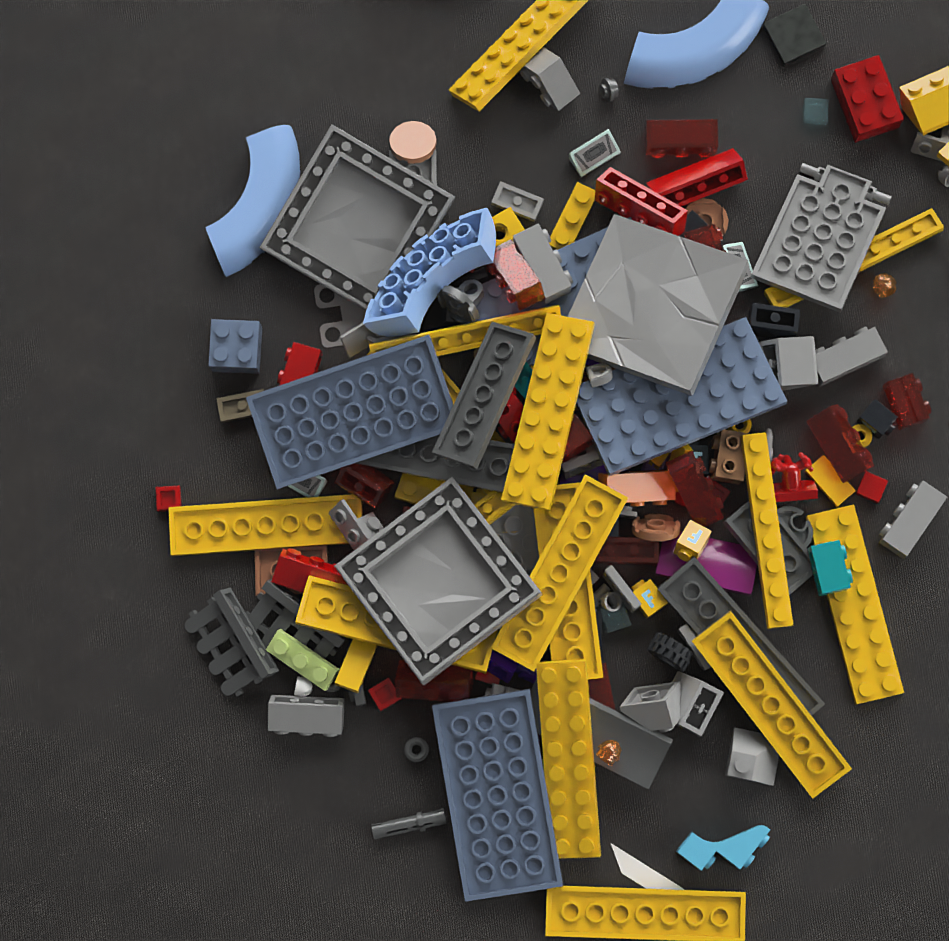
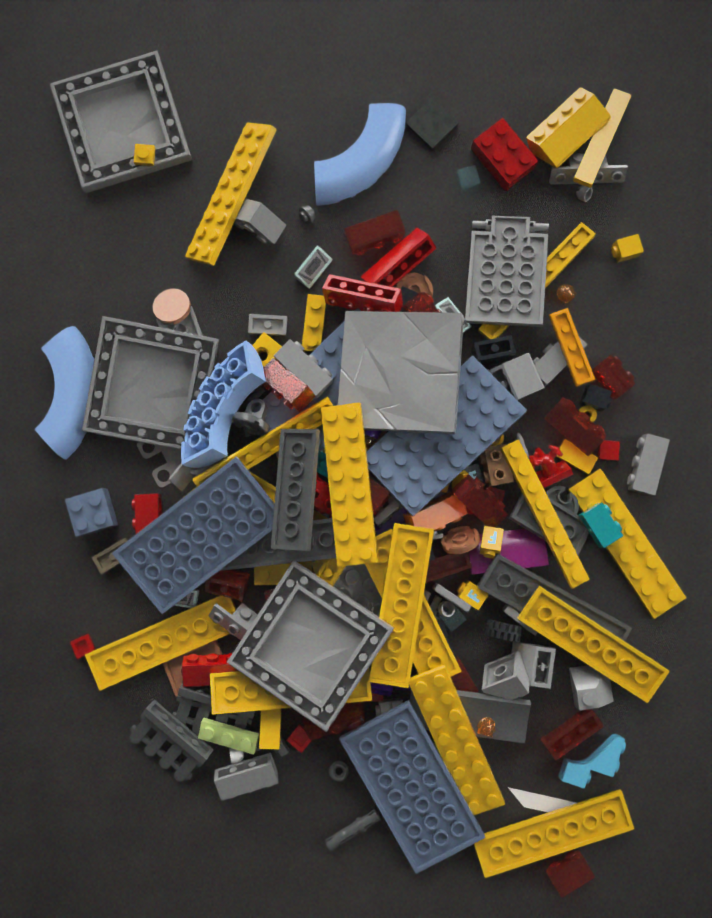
camera: 25 degrees left, 5 degrees up
(599, 374) = (378, 440): light grey tile -> none
(709, 800) = (571, 733): none -> clear red brick
(867, 349) = (571, 347): none -> light orange tile

